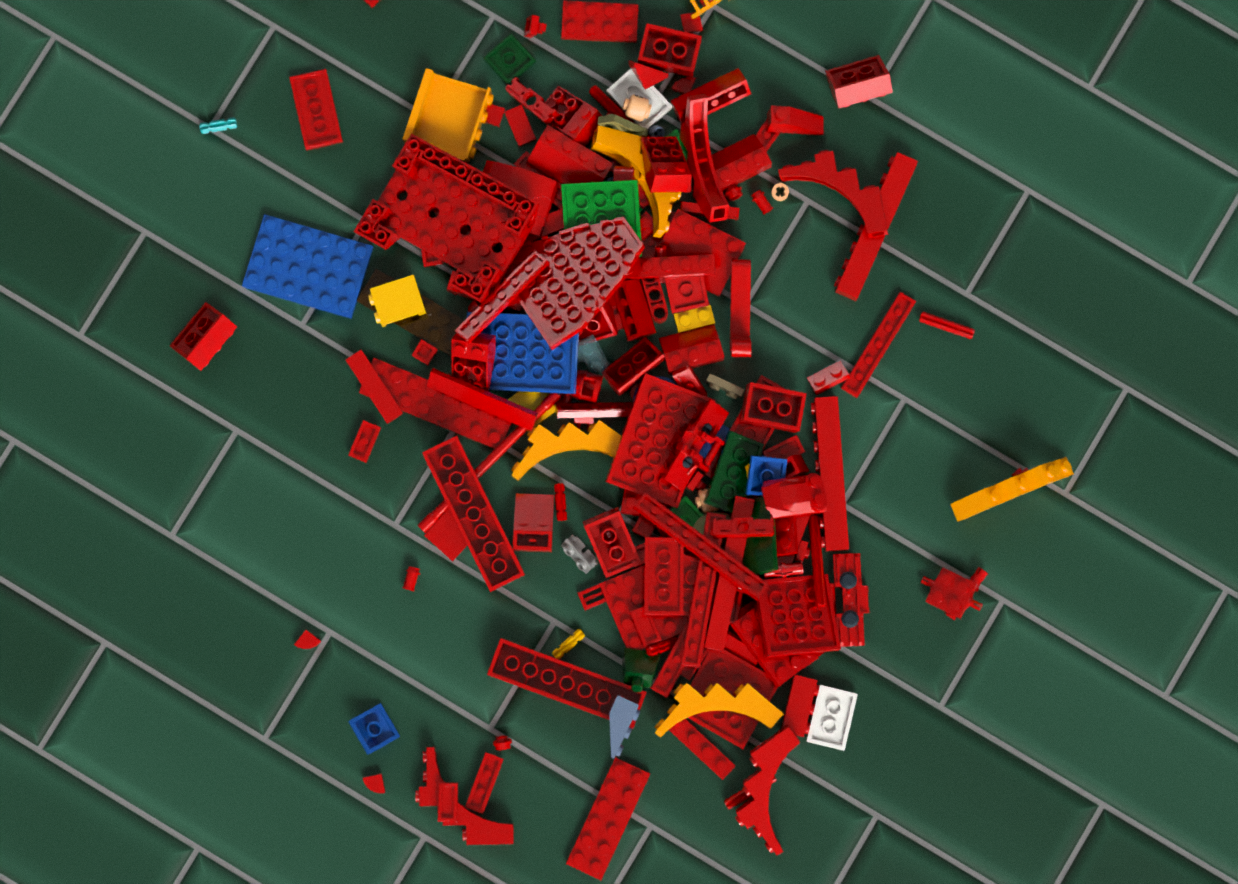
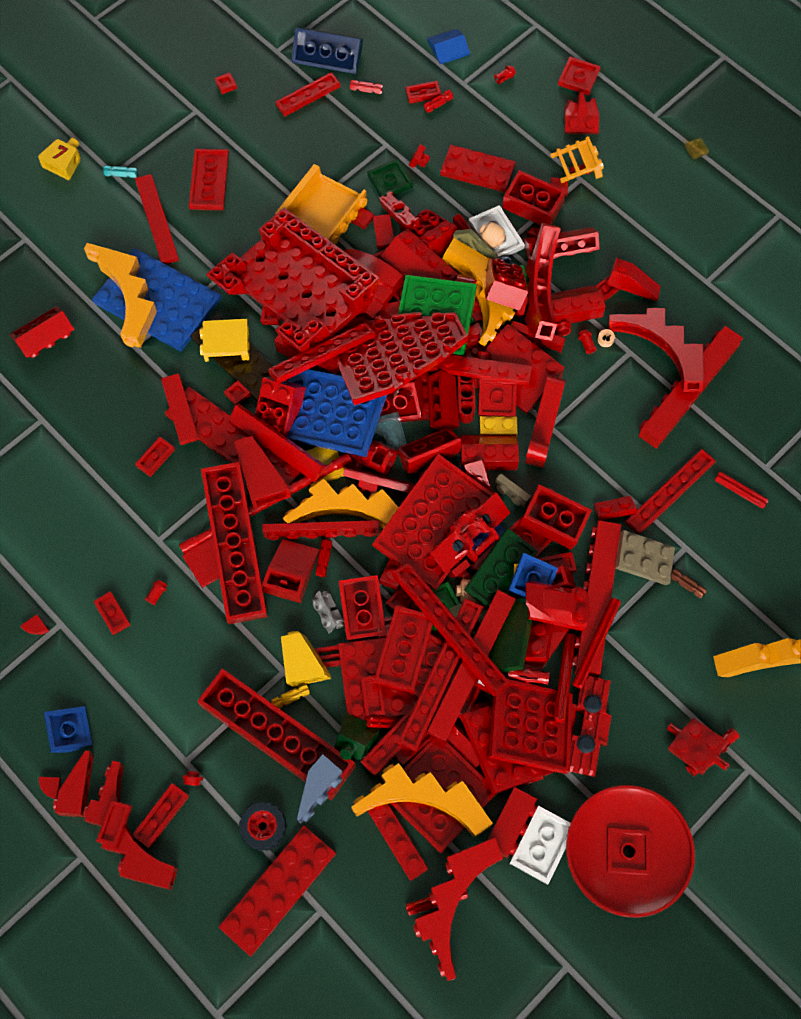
camera: 15 degrees right, 15 degrees down
(150, 126) = (61, 158): none -> yellow torso
(265, 249) = (123, 270): none -> light orange arch
(276, 173) = (156, 219): none -> red tile
(376, 609) = (111, 613): none -> red plate
(400, 784) = (74, 792): none -> red slope
(476, 437) = (261, 477): none -> red slope
(559, 473) = (316, 529): none -> red plate
(567, 771) = (253, 818): none -> black wheel
(570, 608) = (301, 660): none -> yellow slope
(646, 75) = (508, 211): red slope -> none
(730, 527) = (484, 618): red piece -> none
(803, 551) = (552, 664): red plate -> none
(839, 521) = (596, 643): none -> red axle
(859, 81) = (700, 265): red slope -> none
(867, 422) = (644, 557): none -> dark tan plate
(913, 436) = (688, 583): none -> copper axle
(938, 703) = (660, 843): none -> red dish

